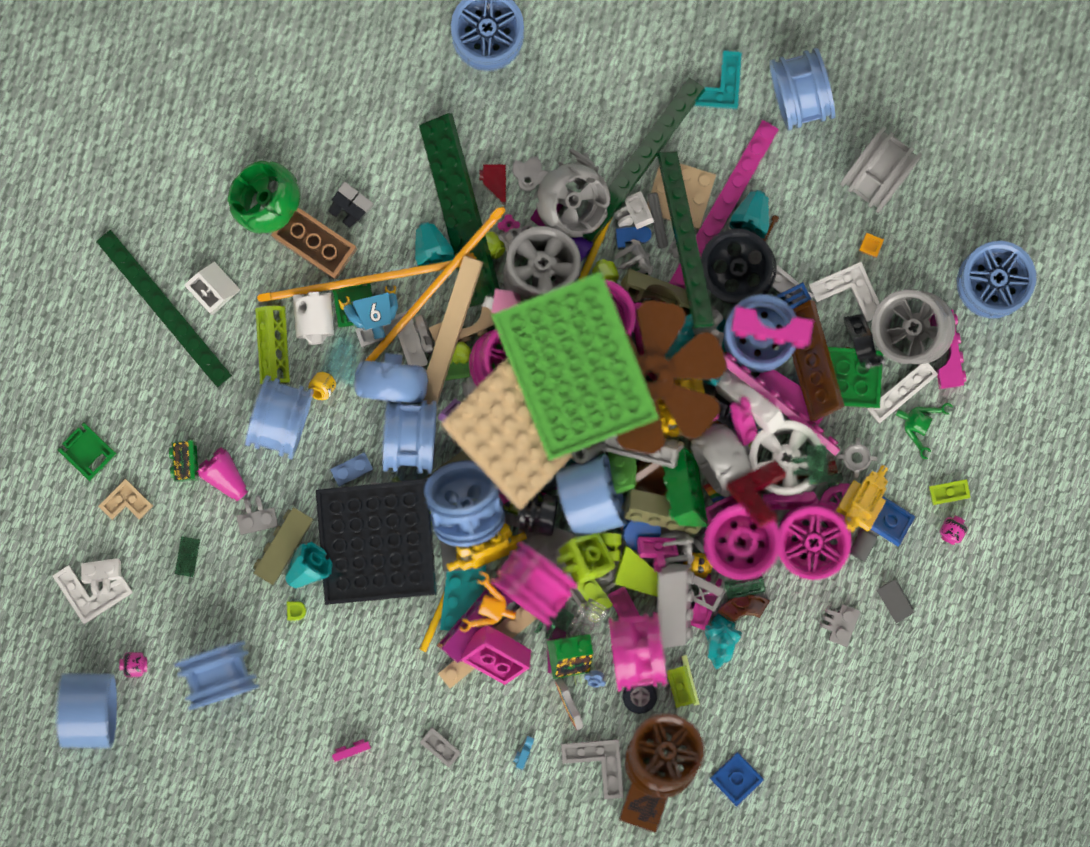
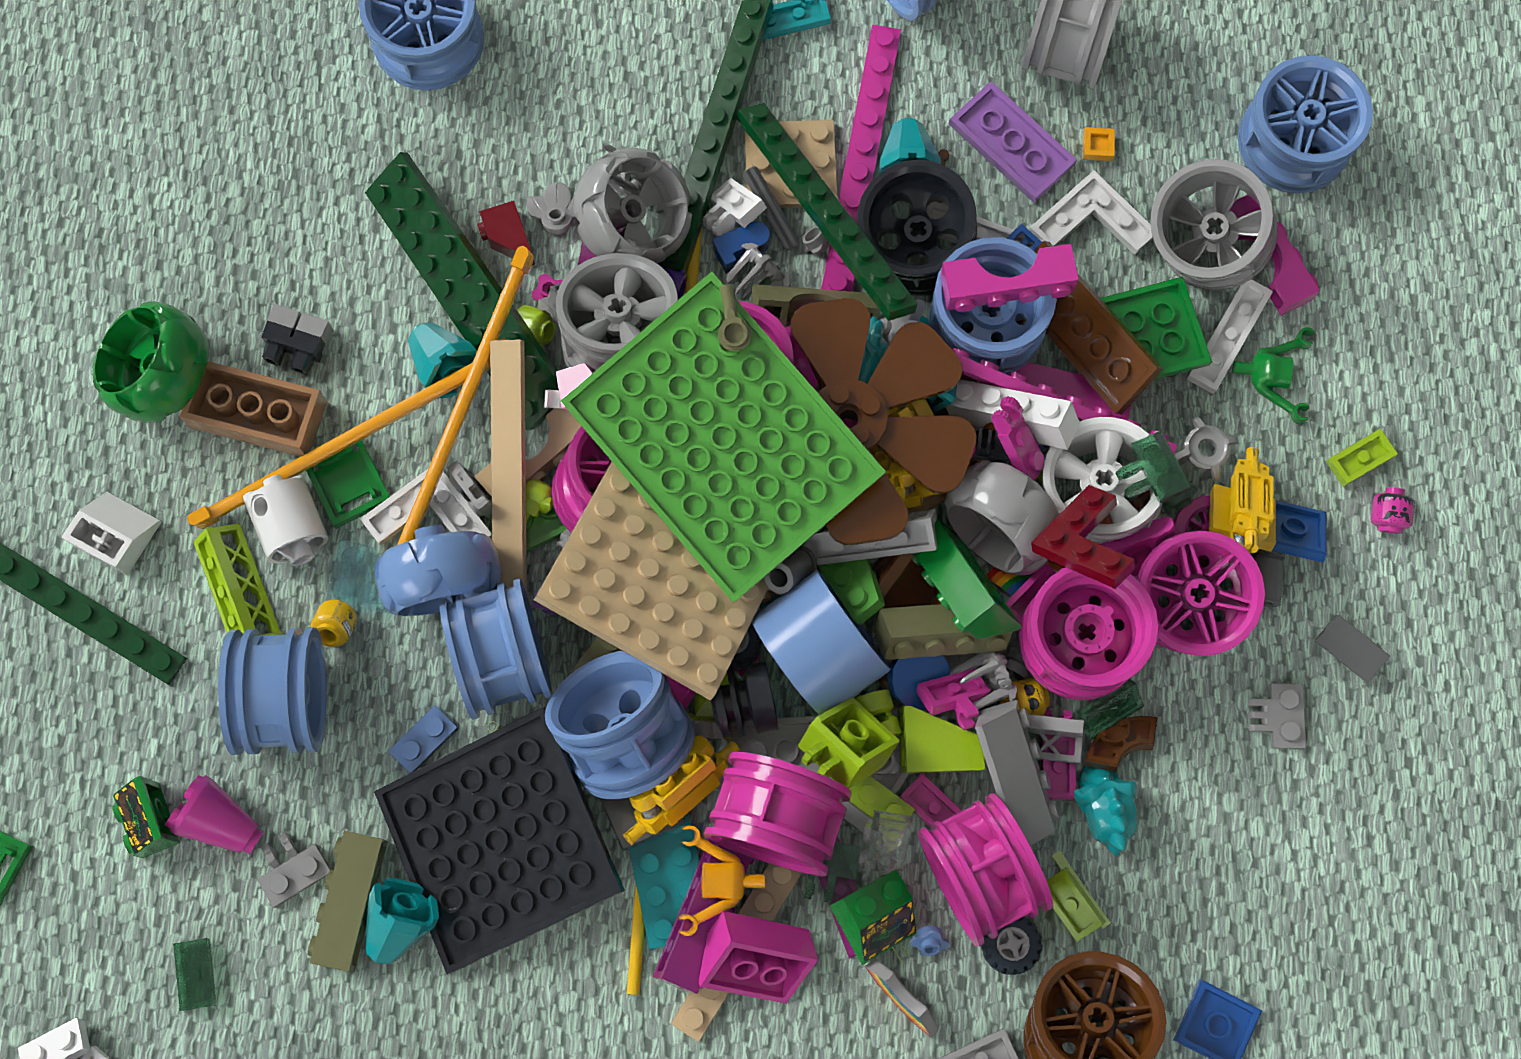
camera: 15 degrees left, 10 degrees down
(125, 496) = (63, 910): tan plate -> none
(295, 610) = (402, 1002): lime tile -> none
(372, 311) = (377, 480): dark azure torso -> none
(601, 313) = (734, 332): none -> olive plate
(819, 225) = (1012, 142): none -> medium lavender plate
(863, 341) = (1147, 273): black piece -> none

